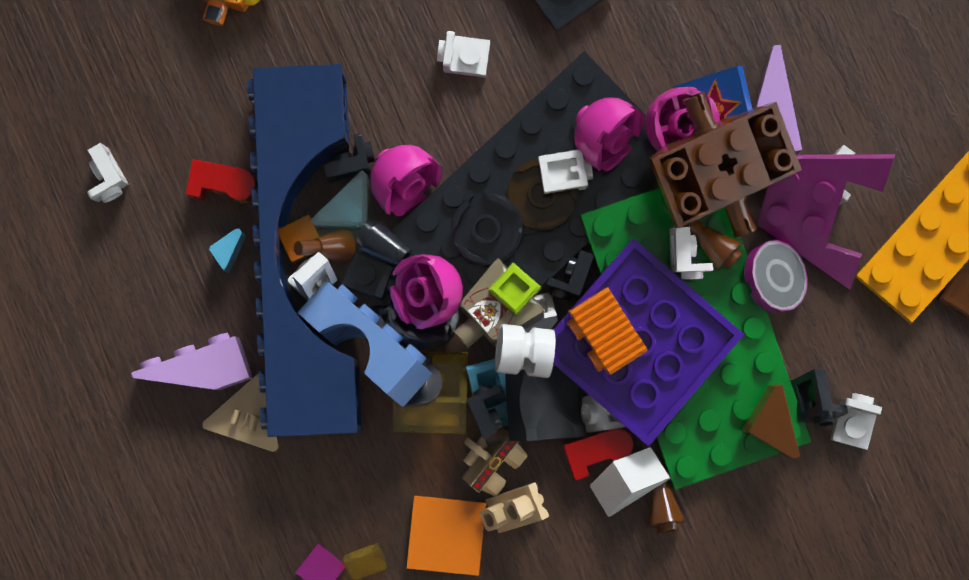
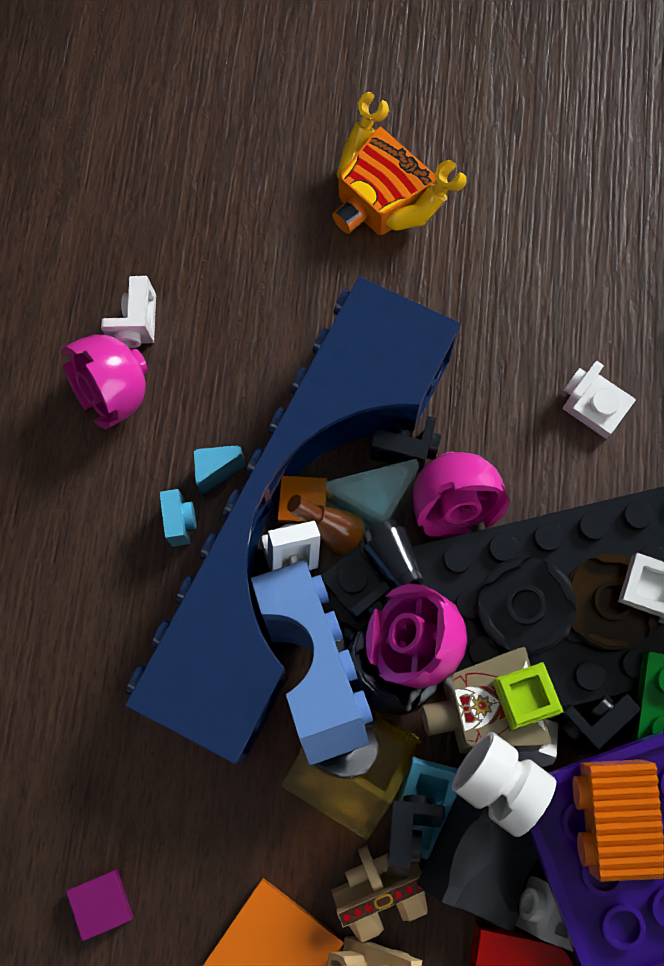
camera: 30 degrees right, 10 degrees down
(116, 230) = (106, 377): none -> dark pink cylinder
(210, 367) = (116, 585): lavender slope -> none
(221, 180) = (250, 385): red leg -> none
(223, 298) = (177, 517): none -> medium azure plate
(241, 417) = (113, 662): tan piece -> none
(365, 561) = (157, 926): clear yellow slope -> none

